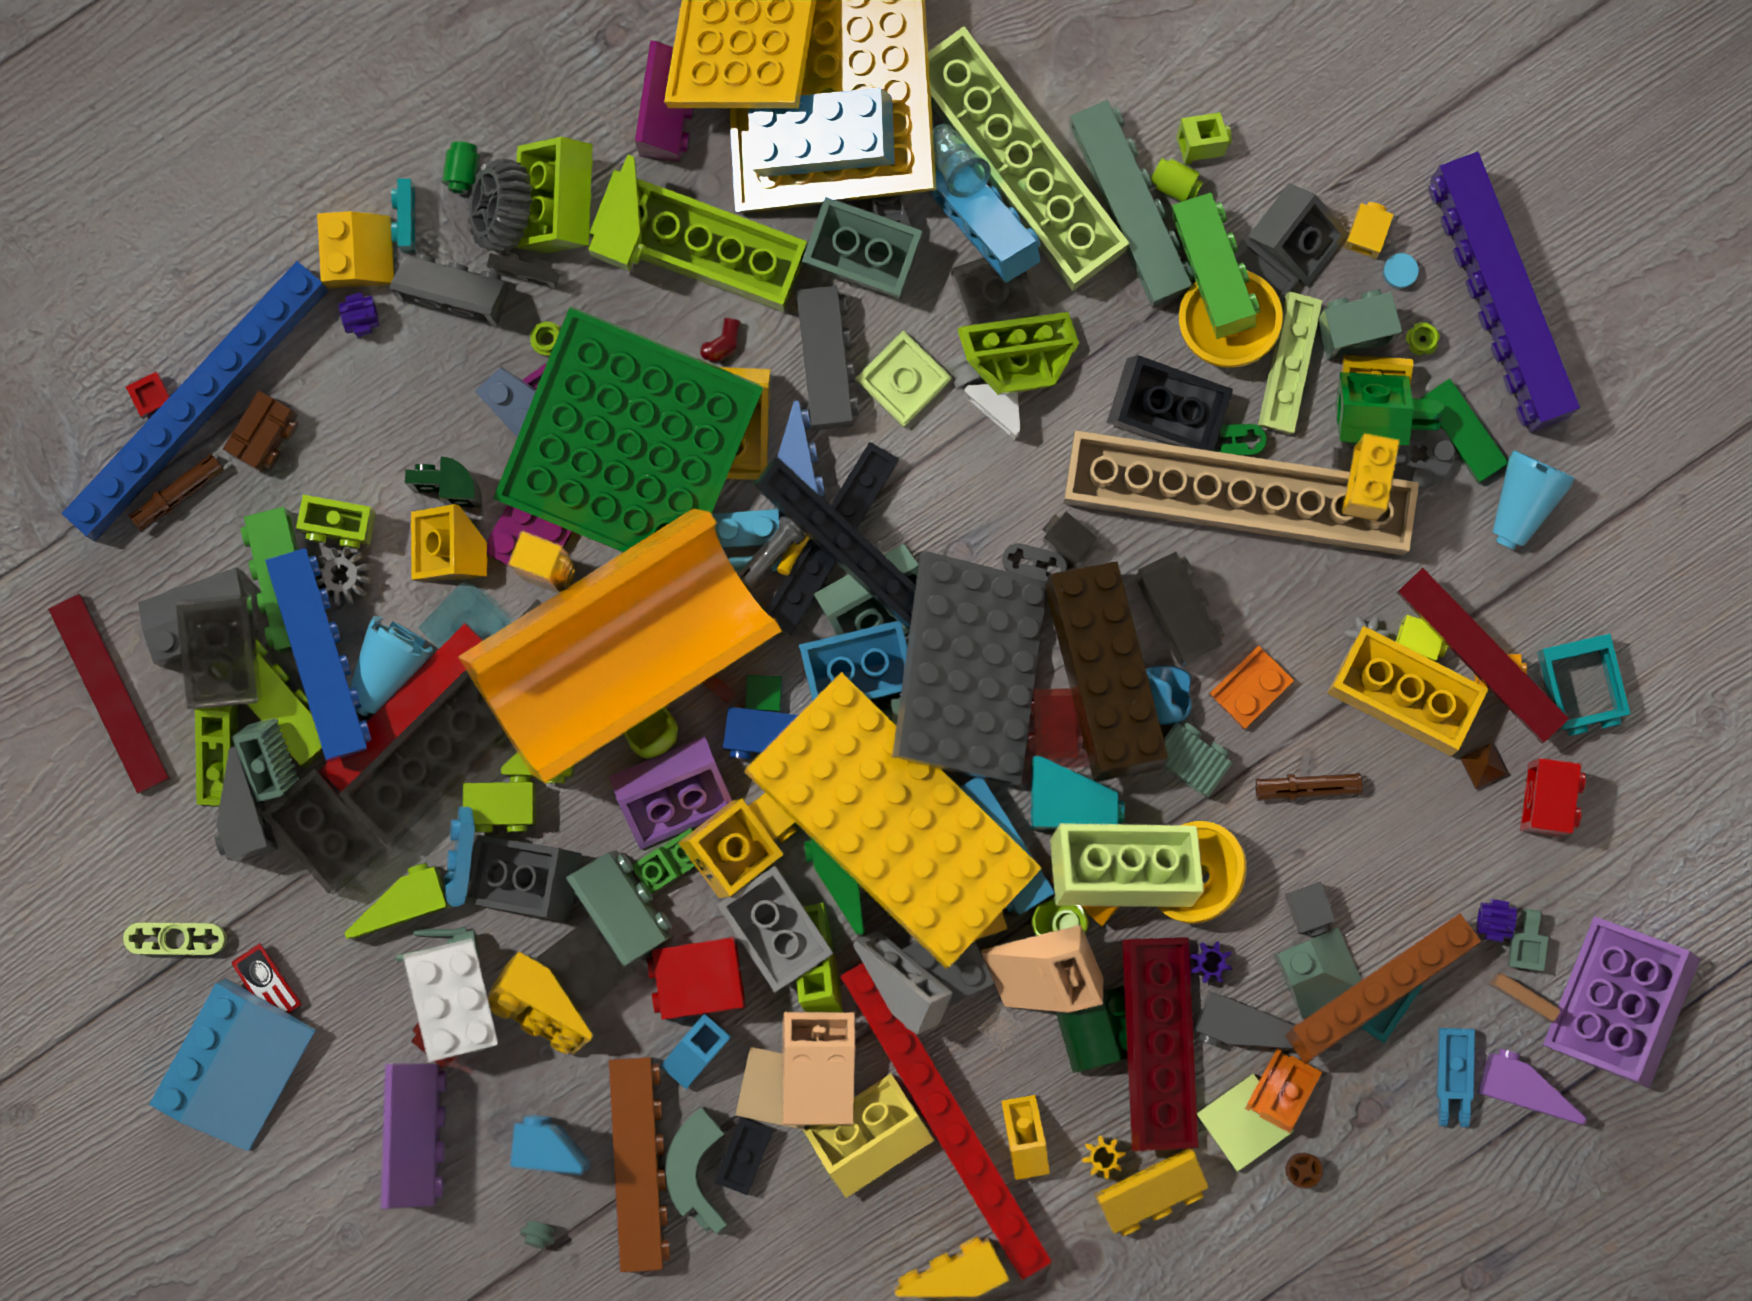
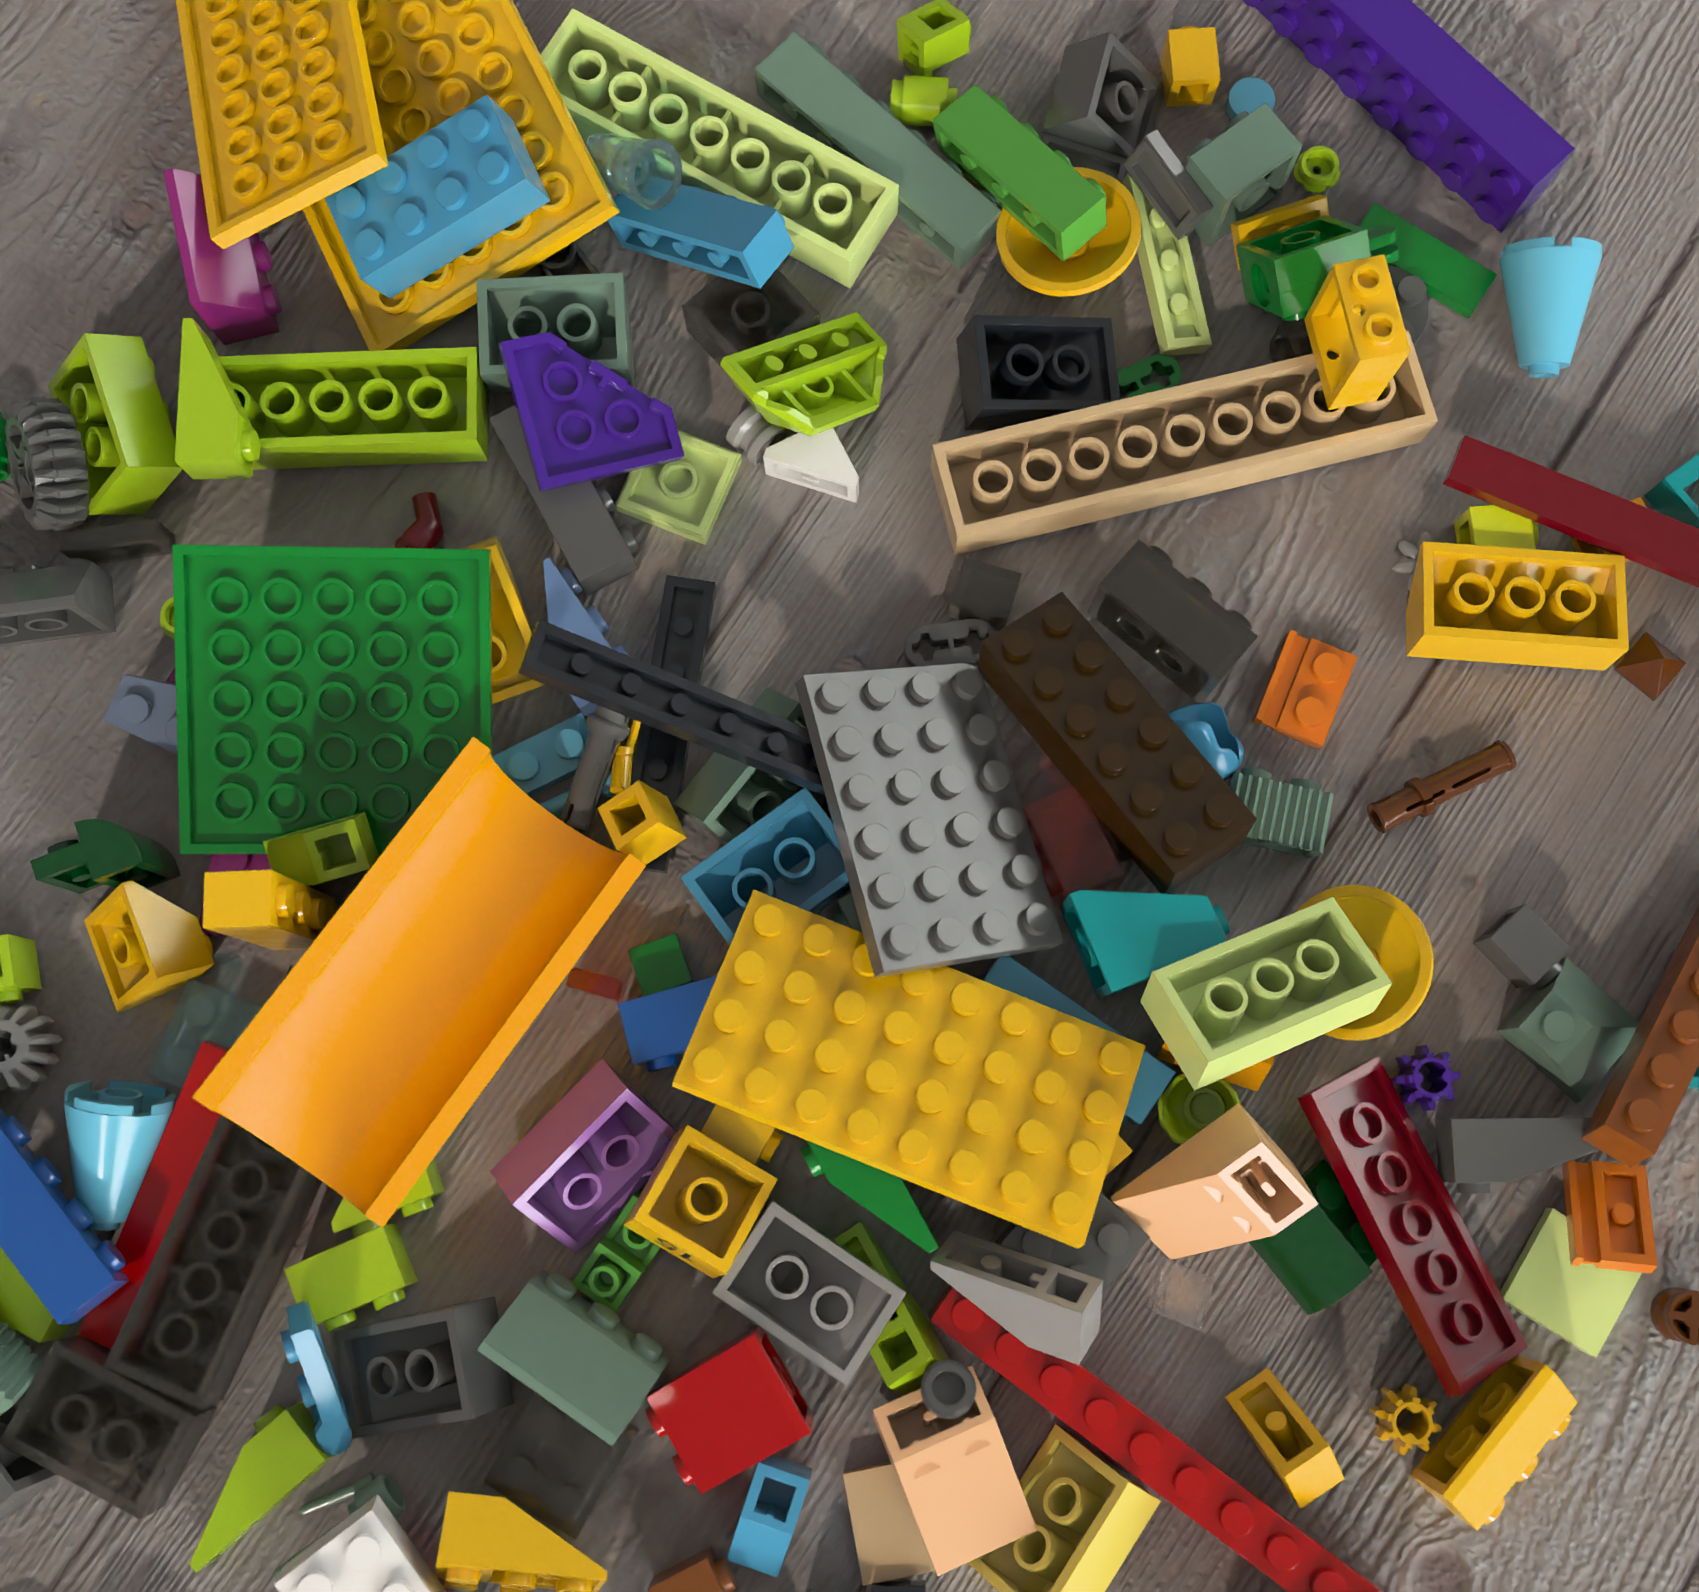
camera: 25 degrees left, 5 degrees down
(583, 535) = (324, 850): none -> lime slope
(653, 734) = (526, 1084): lime hair -> none
(789, 600) = (642, 822): none -> yellow brick
(834, 1018) = (948, 1389): none -> dark grey tile
(857, 318) = (582, 416): none -> dark purple plate
(1308, 315) = (1167, 185): none -> dark grey tile

